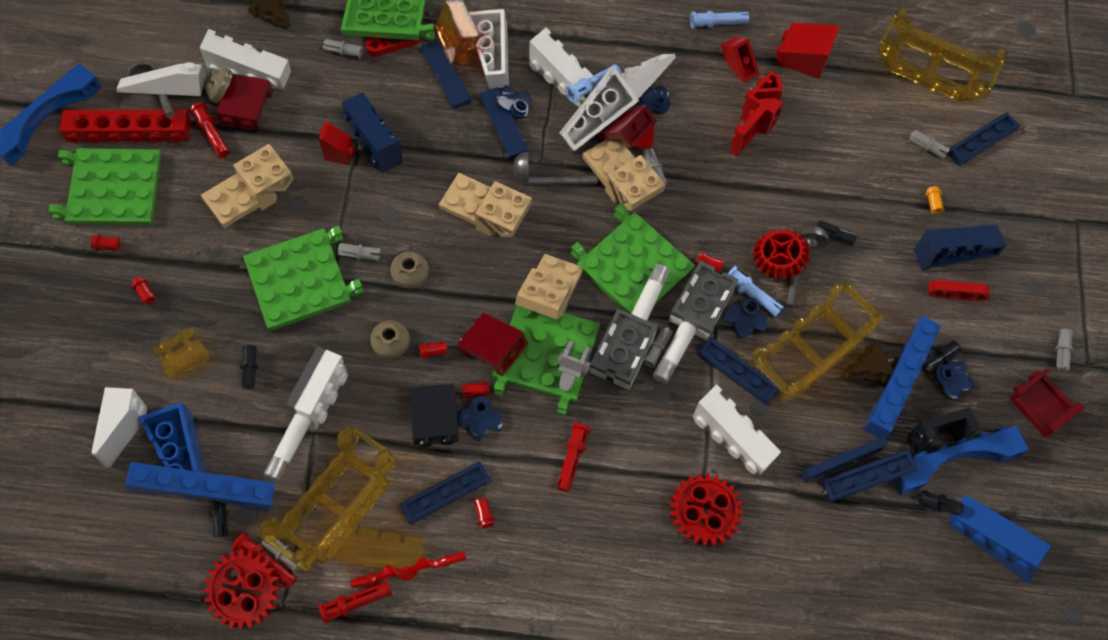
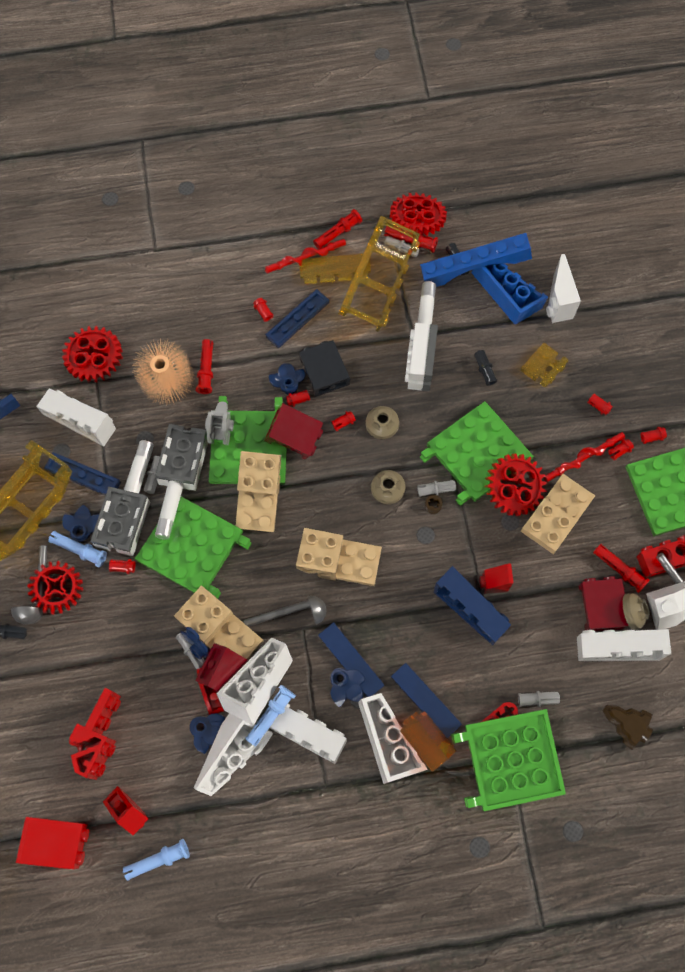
camera: 170 degrees right, 5 degrees up
(147, 238) = (622, 448): none -> red pin
(190, 243) = (584, 454): none -> red piece
(276, 227) = (518, 468): none -> red gear
(369, 232) = (430, 509): none -> dark brown bush
(624, 450) = (163, 372): none -> light nougat piece
(648, 155) = (198, 648): none -> dark blue plate

